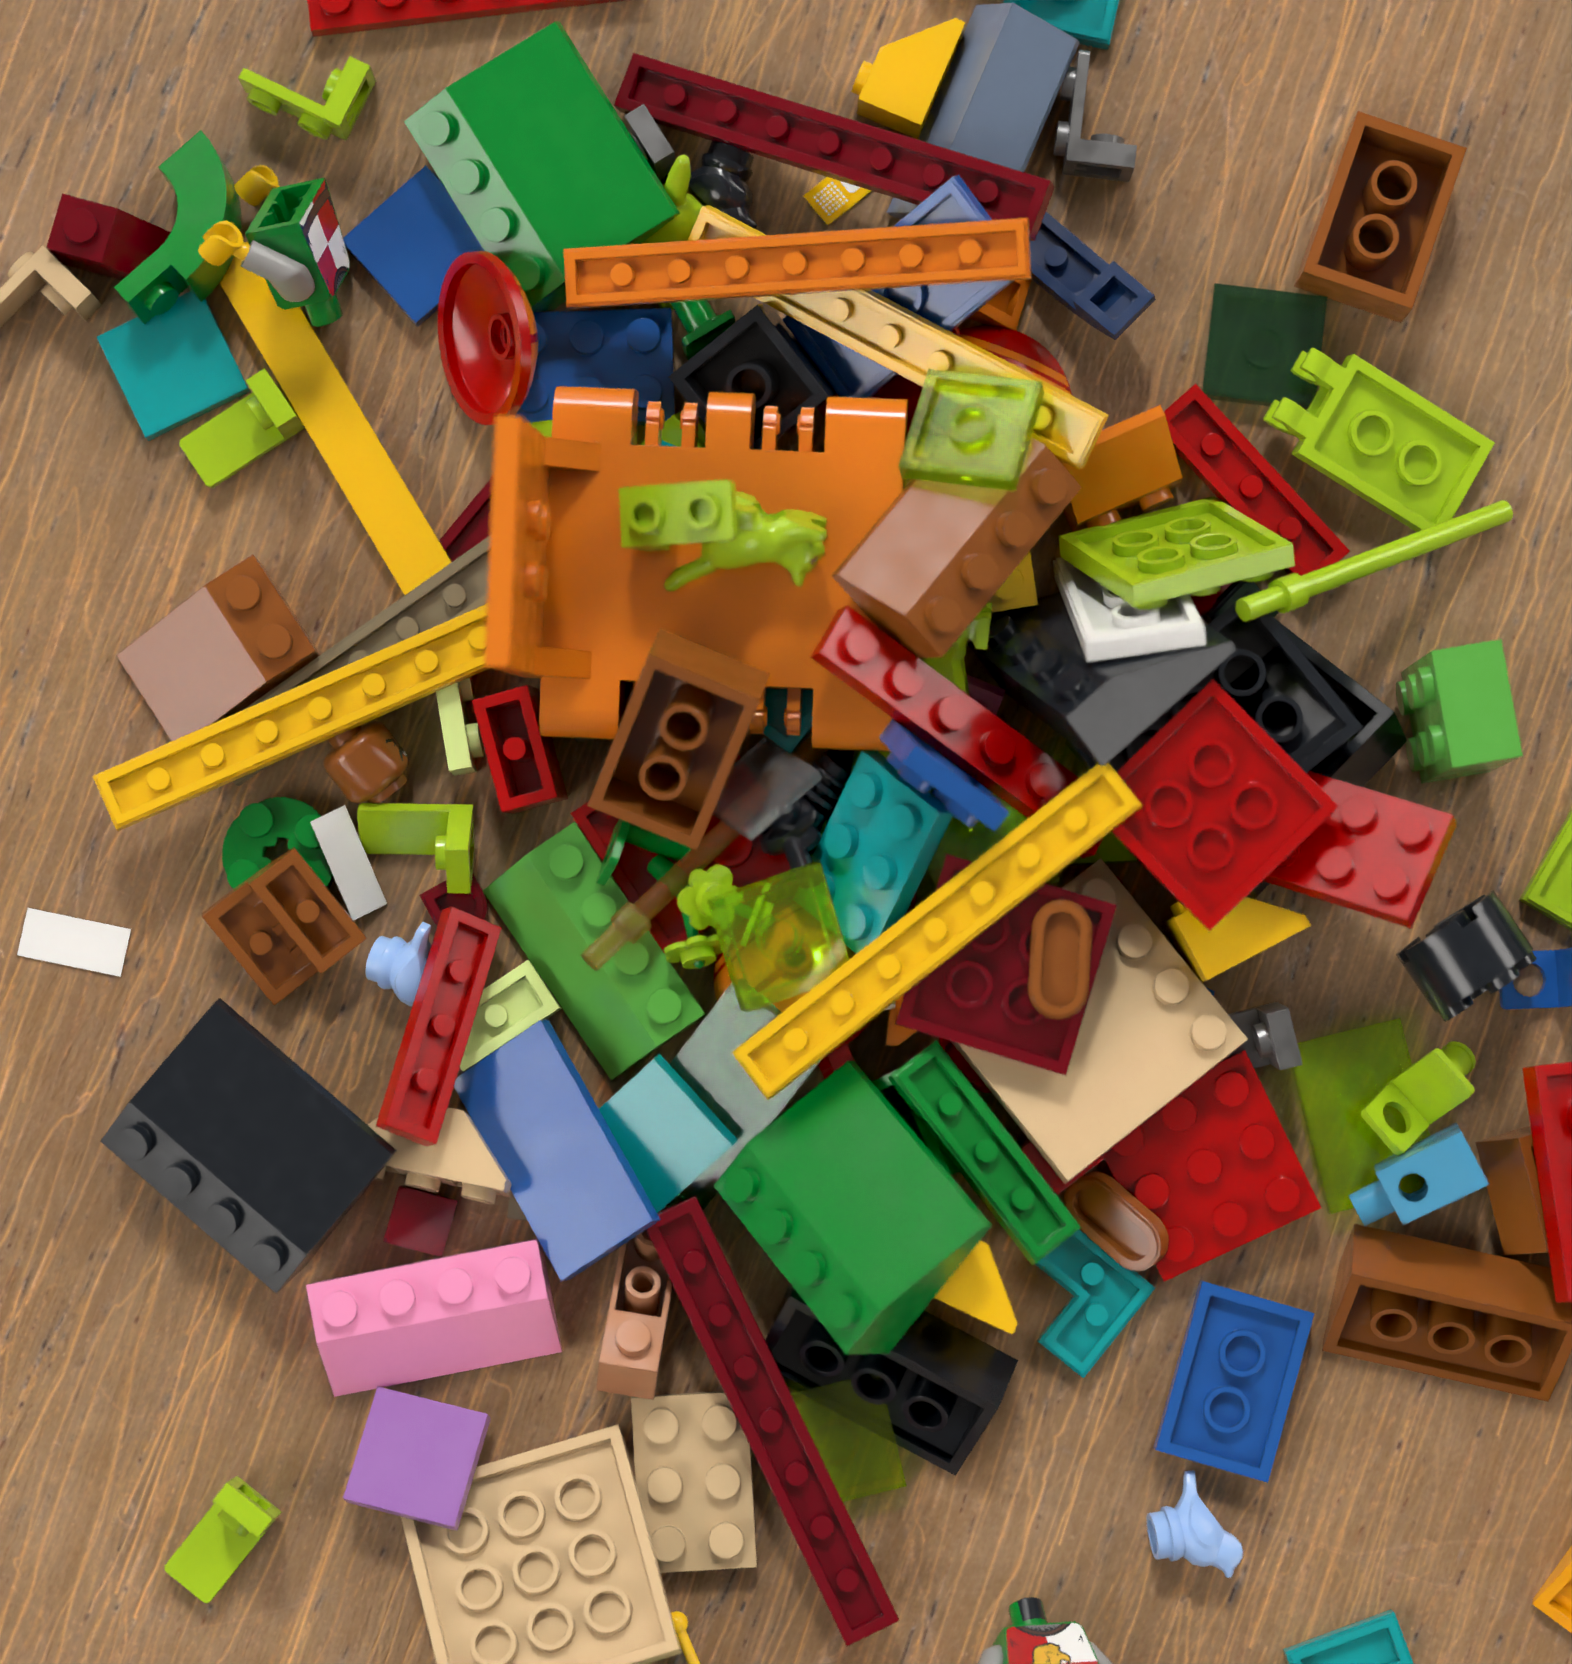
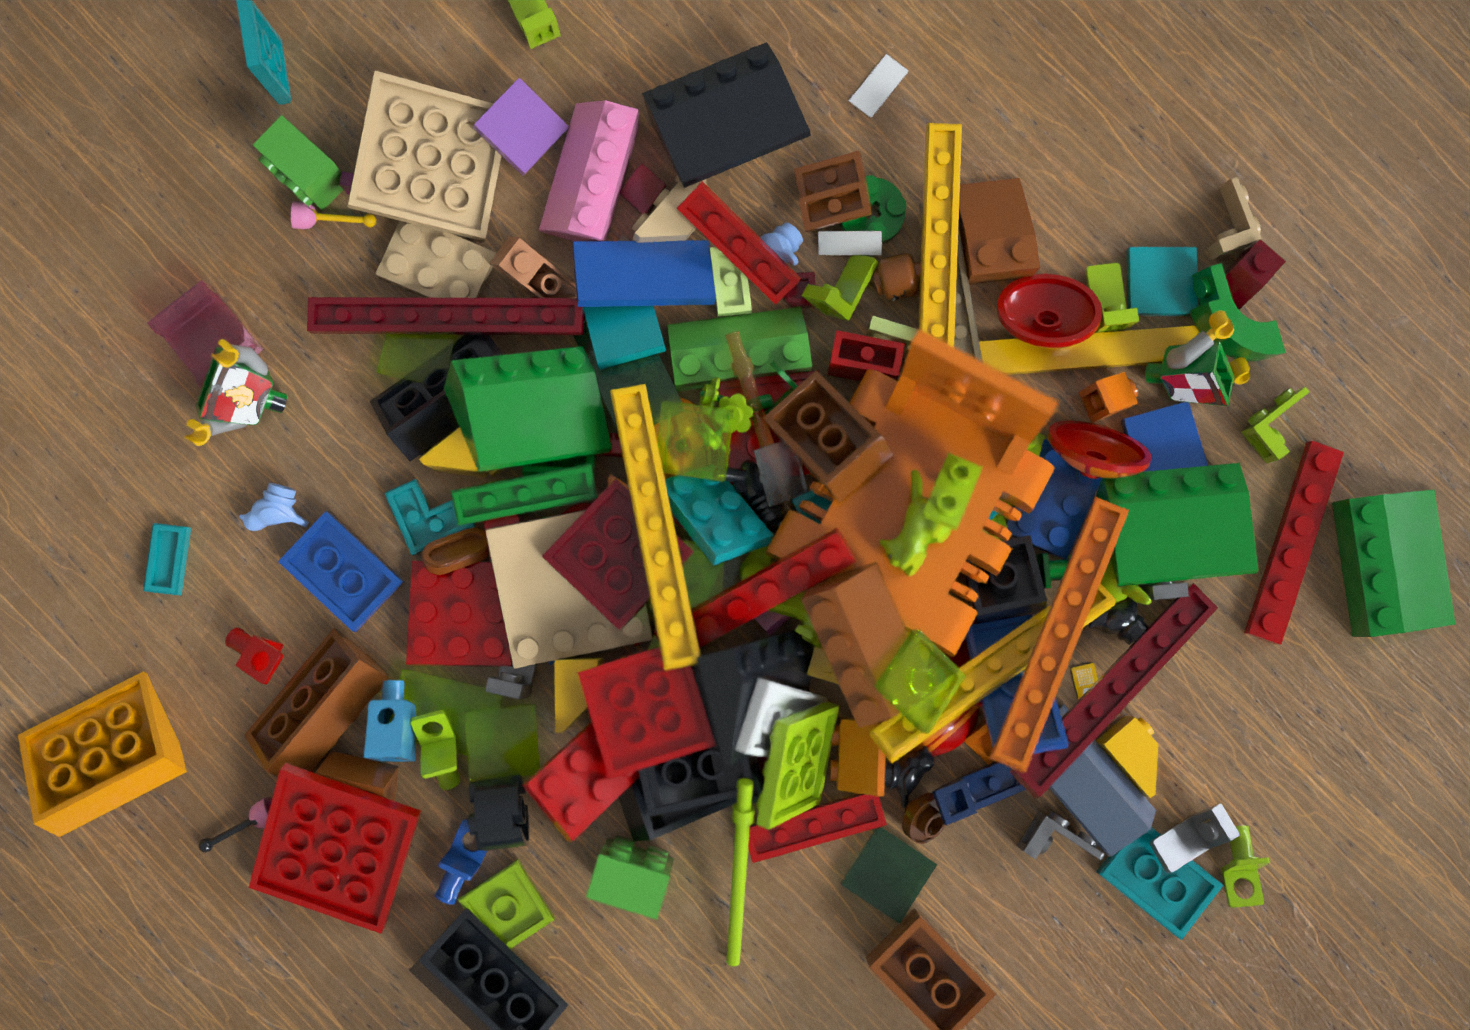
camera: 110 degrees right, 0 degrees up
(290, 511) = (1049, 310): none -> red dish
(395, 358) = (1109, 396): none -> orange slope
(954, 787) = (743, 562): blue plate -> none
(1059, 959) = (604, 583): dark orange tile -> none
(1104, 387) = (907, 772): none -> black animal
(1161, 335) = (922, 819): none -> reddish brown plate
(1362, 1007) = (501, 741): none -> clear neon green tile
(1381, 440) = (805, 912): lime tile -> none
(1421, 1439) = (258, 654): none -> red bracket

